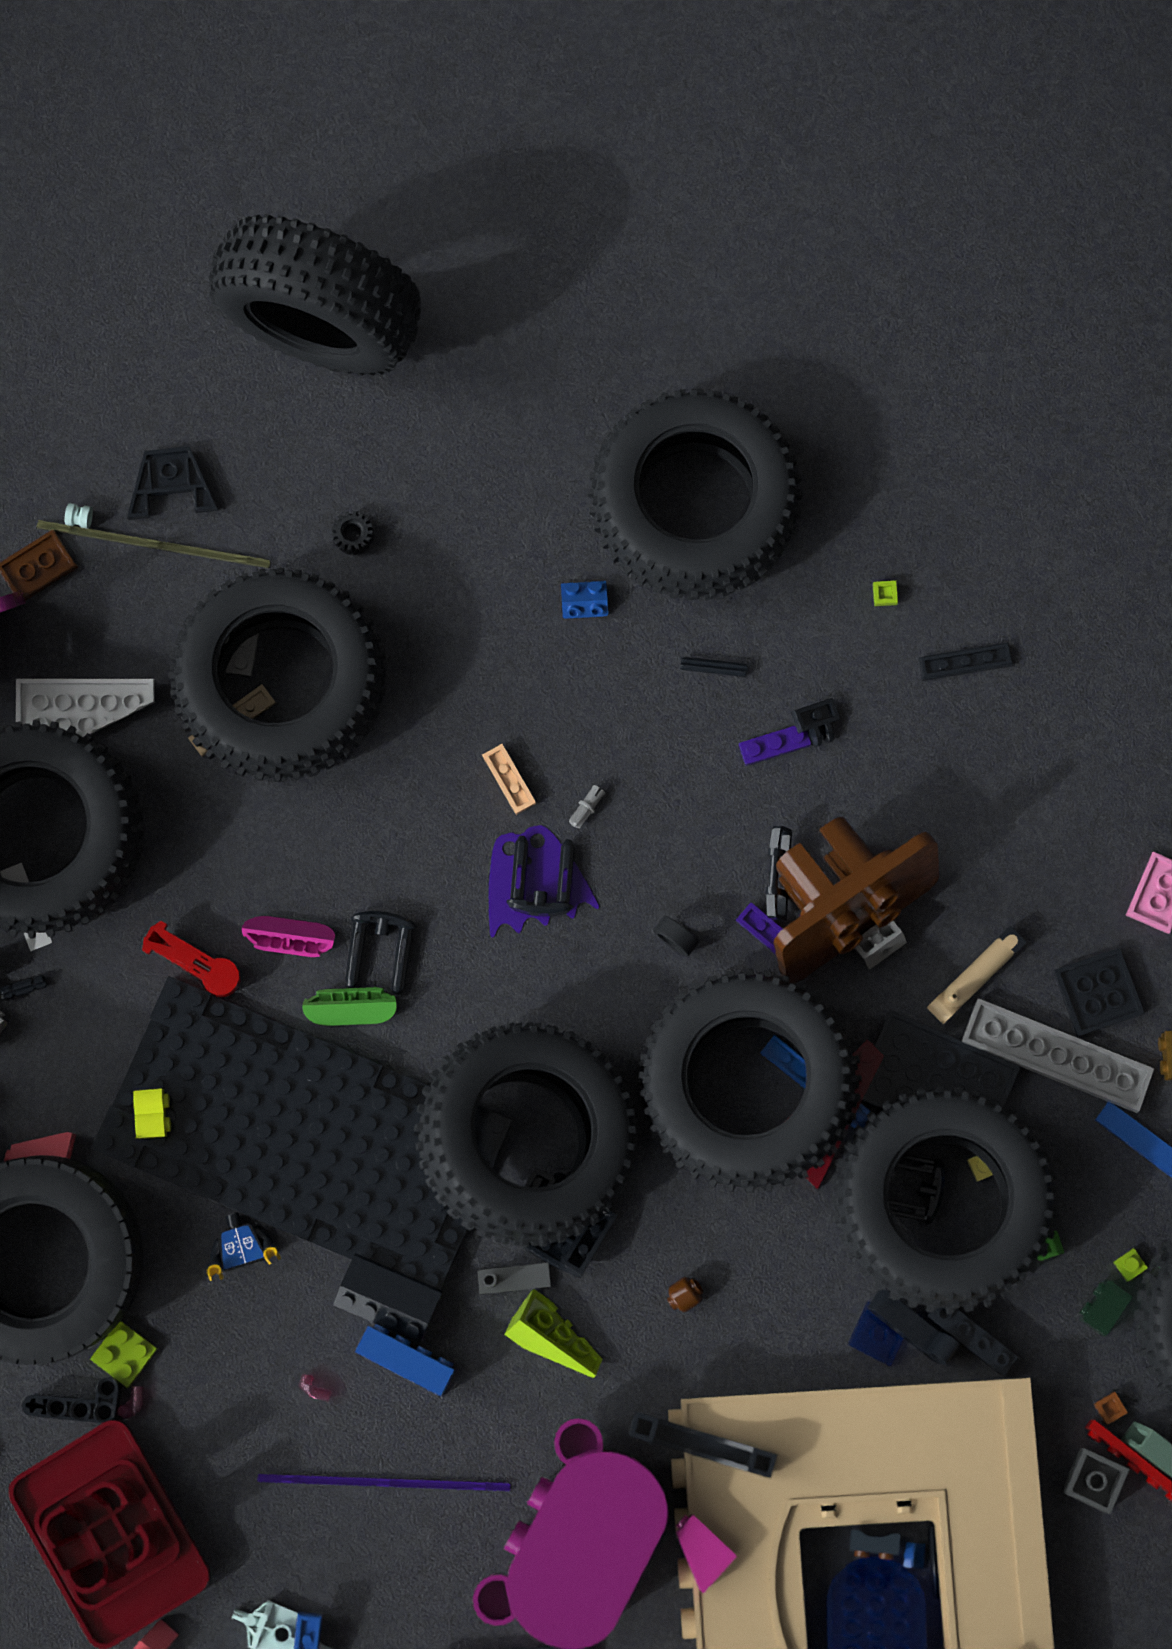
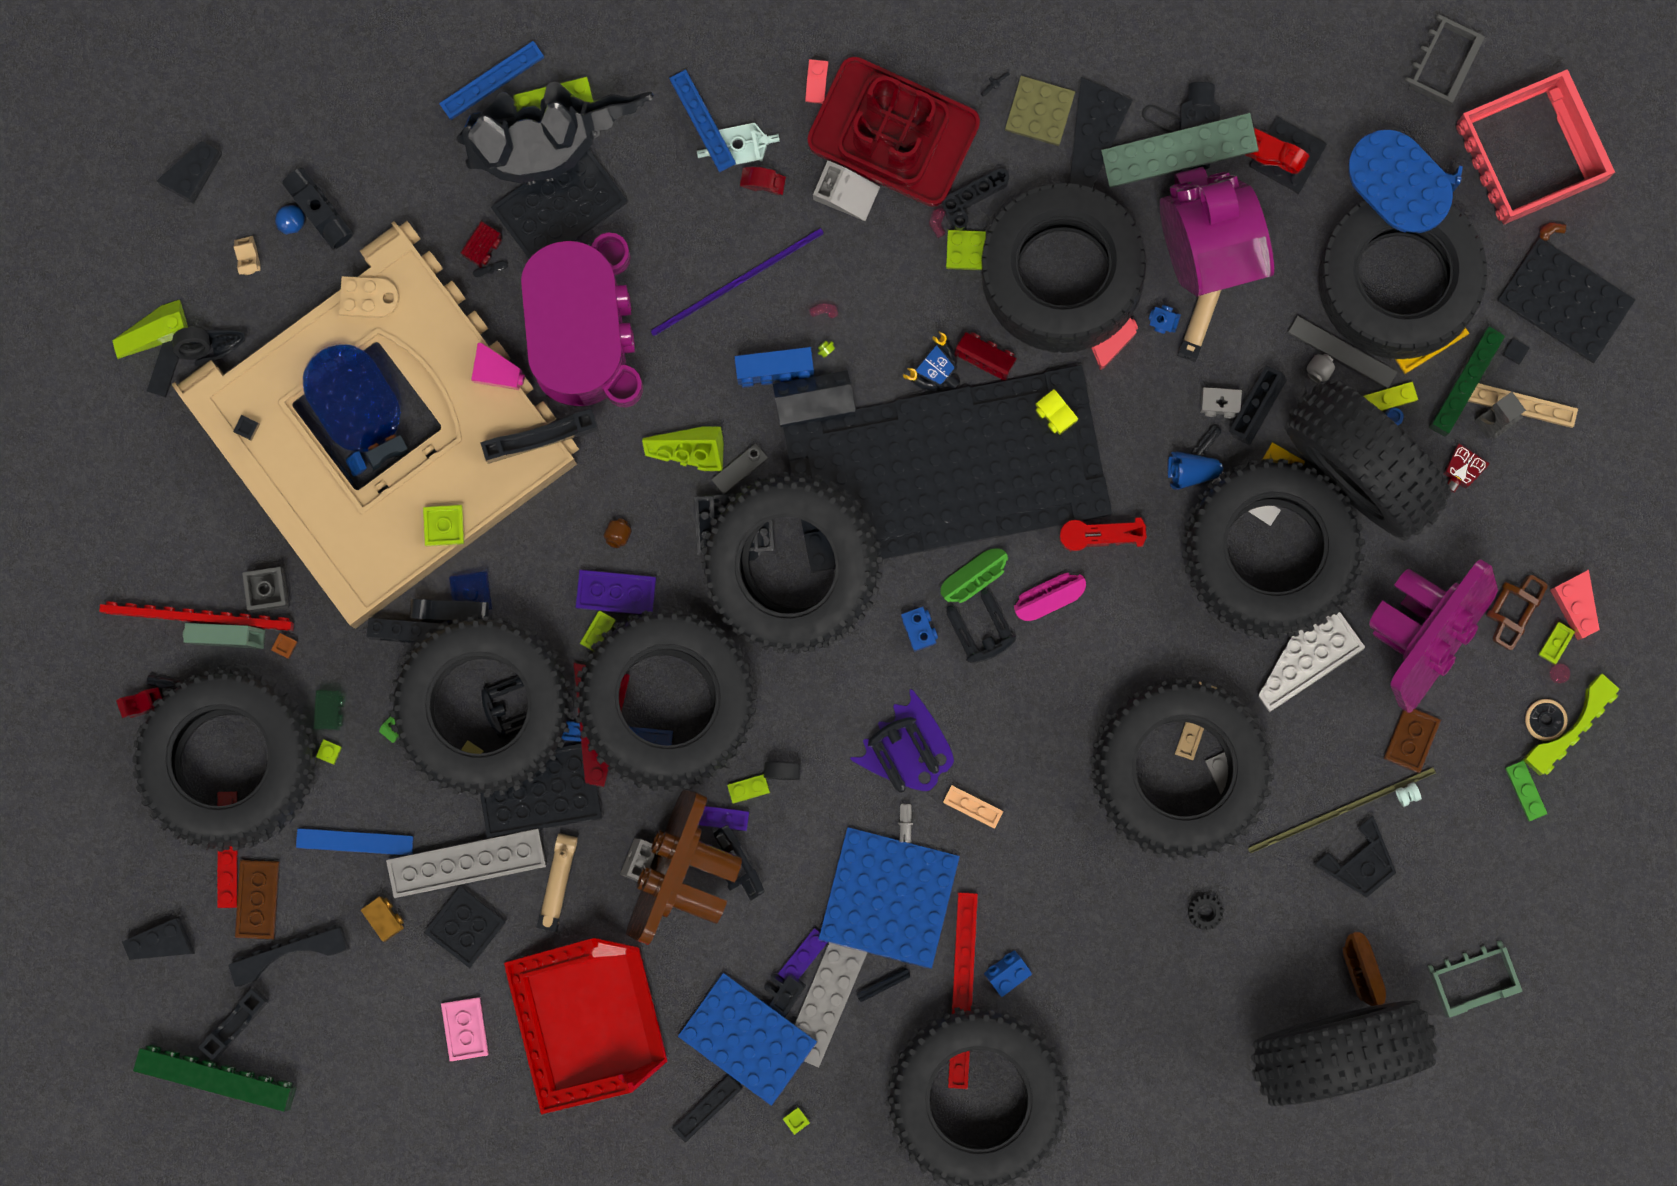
camera: 145 degrees right, 5 degrees up
(58, 967) = (1192, 469): none -> blue cone
(123, 278) = (1464, 1007): none -> sand green hinge
(180, 1225) = (985, 355): none -> dark red slope
(203, 1502) = (845, 191): none -> light grey slope
(241, 381) = (1364, 969): none -> reddish brown brick
(282, 1575) = (762, 179): none -> dark red brick
(339, 1345) = (825, 348): none -> lime plate
(442, 989) = (918, 629): none -> blue brick
(624, 631) = (963, 978): none -> red plate
(652, 744) = (889, 898): none -> blue plate
(721, 944) = (748, 789): none -> lime plate
(727, 1233) = (615, 592): none -> dark purple plate
(766, 697) = (828, 997): none -> light grey plate
(771, 1204) = (600, 624): none -> lime plate
(865, 1417) = (443, 525): none -> lime plate
(882, 699) = (747, 1039): none -> blue plate
(1036, 813) = (585, 1022): none -> red windscreen

